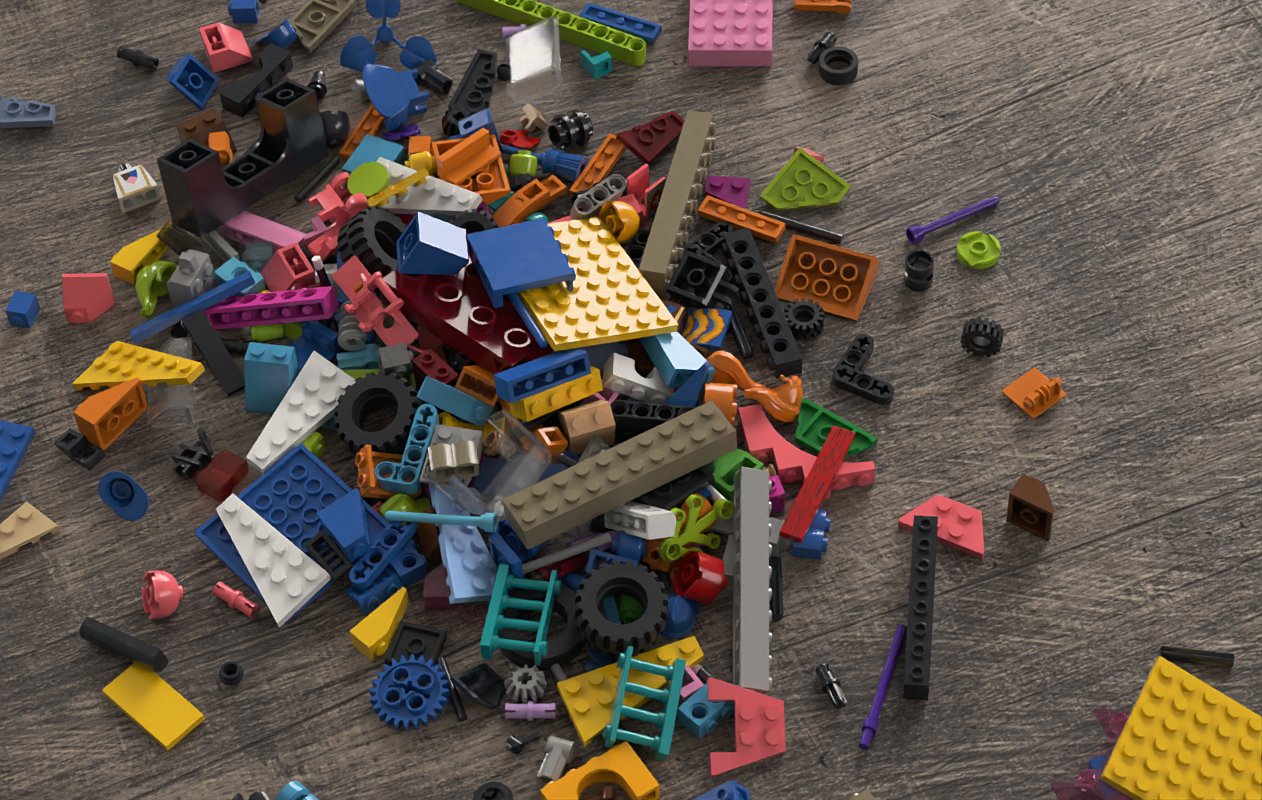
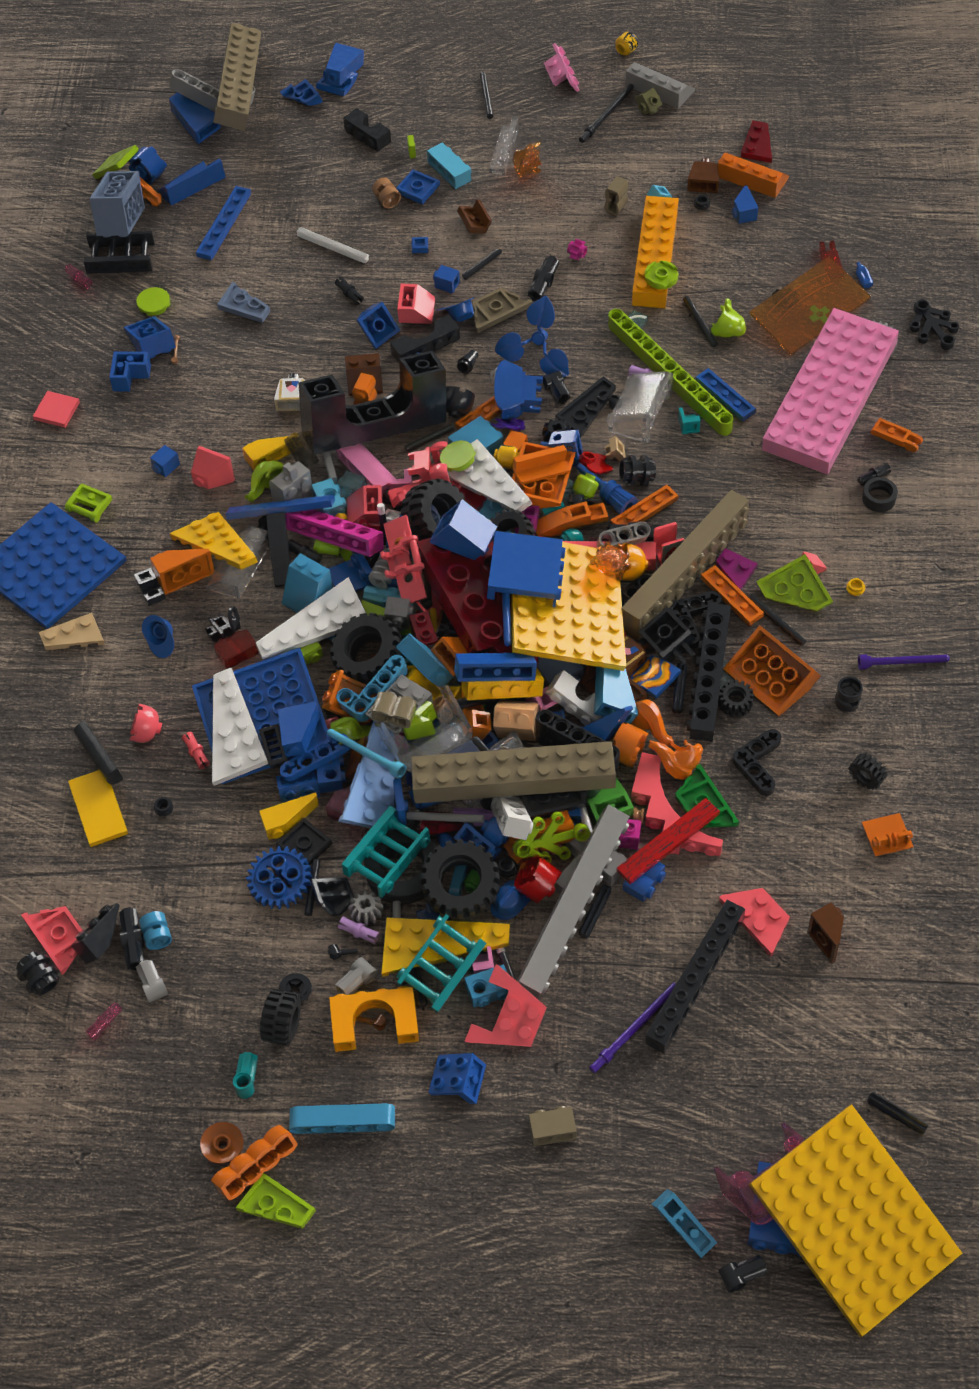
camera: 25 degrees right, 5 degrees up
(90, 17) = (332, 245): none -> white axle
(399, 188) = (472, 471): yellow wing -> none
(490, 466) = (422, 722): none -> lime slope
(604, 222) = (611, 560): none -> clear orange hair
(653, 137) = (697, 500): dark red wing -> none
(831, 685) = (593, 1010): black axle -> none
(865, 164) = (855, 587): none -> yellow plate
(978, 250) = (909, 695): lime tile -> none

